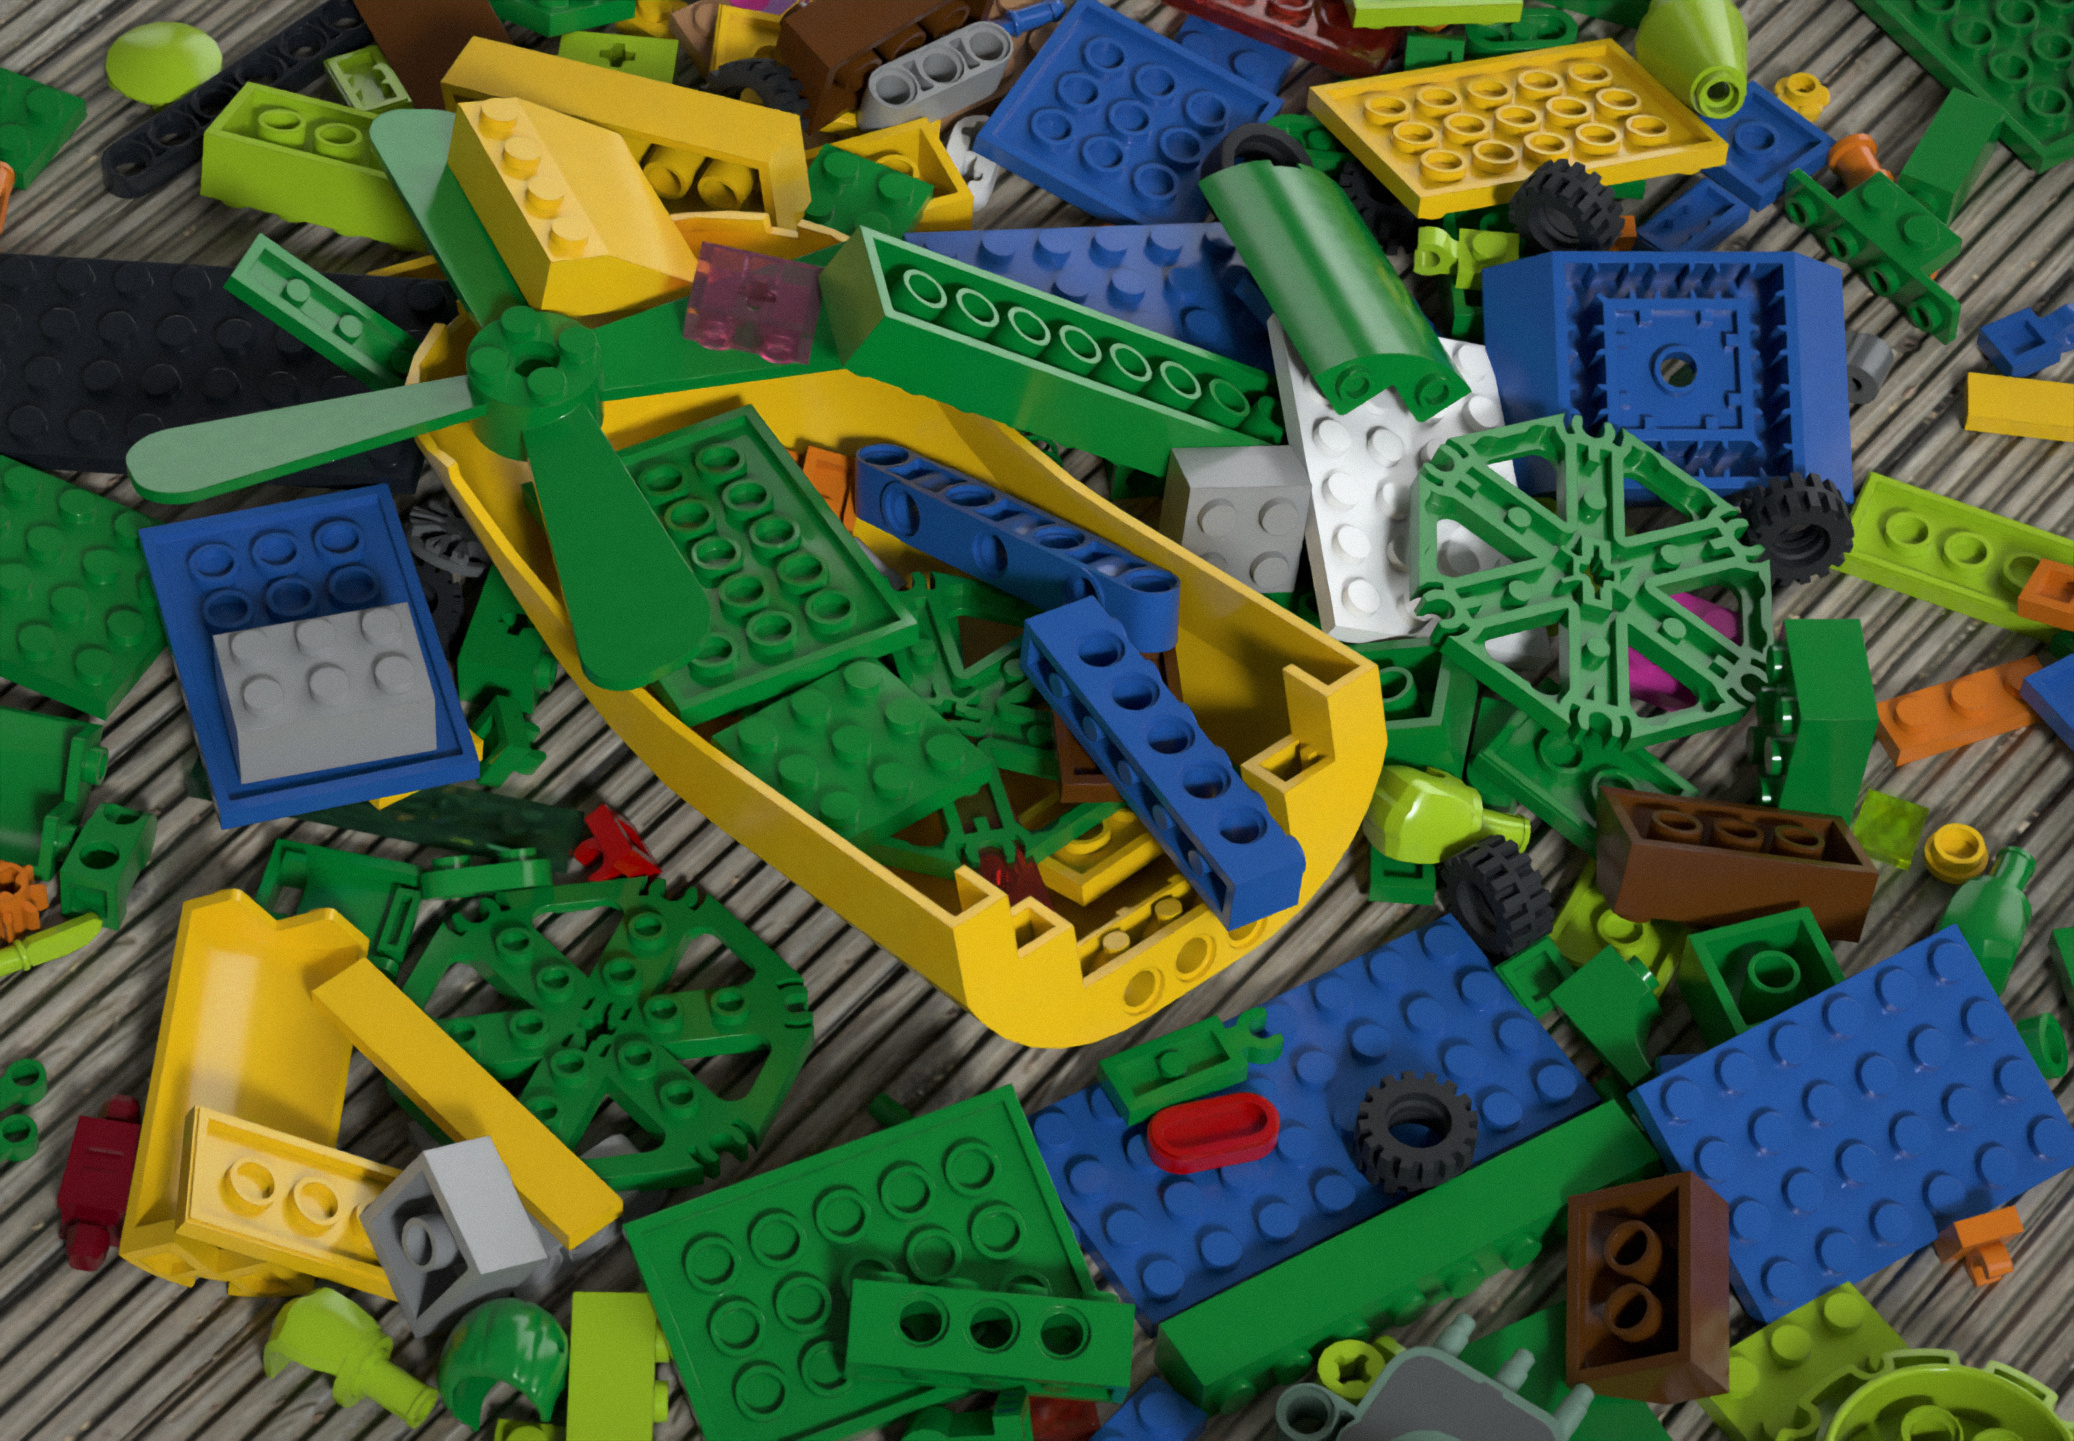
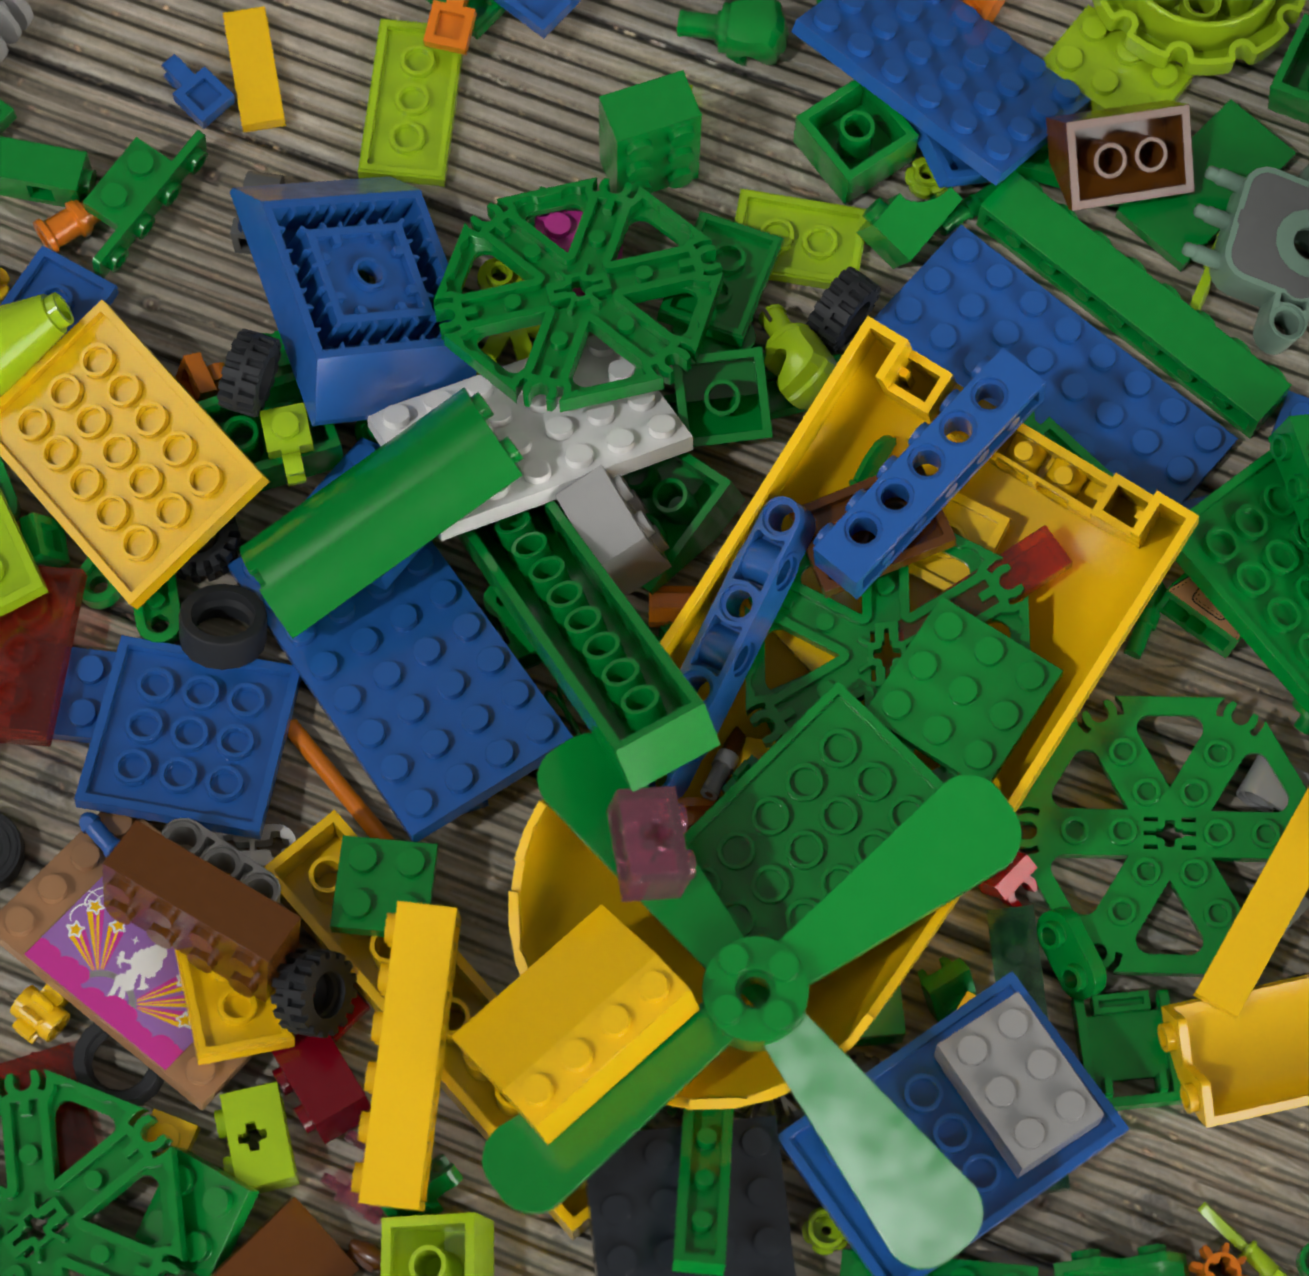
camera: 105 degrees left, 20 degrees up
(106, 863) = (1153, 1217): green leg -> none
(1212, 1133) = (1096, 430): red tile -> none
(1349, 1359) = (1236, 302): lime wheel -> none
(1420, 1103) = (1061, 287): black tyre -> none
(1534, 975) = (888, 276): green tile -> none
(1694, 220) = (161, 330): blue plate -> none
(1728, 862) = (763, 177): reddish brown slope -> none
(1792, 504) = (449, 193): black tyre -> none
(1955, 853) = (678, 57): yellow plate -> none
(1956, 712) = (548, 79): orange plate -> none

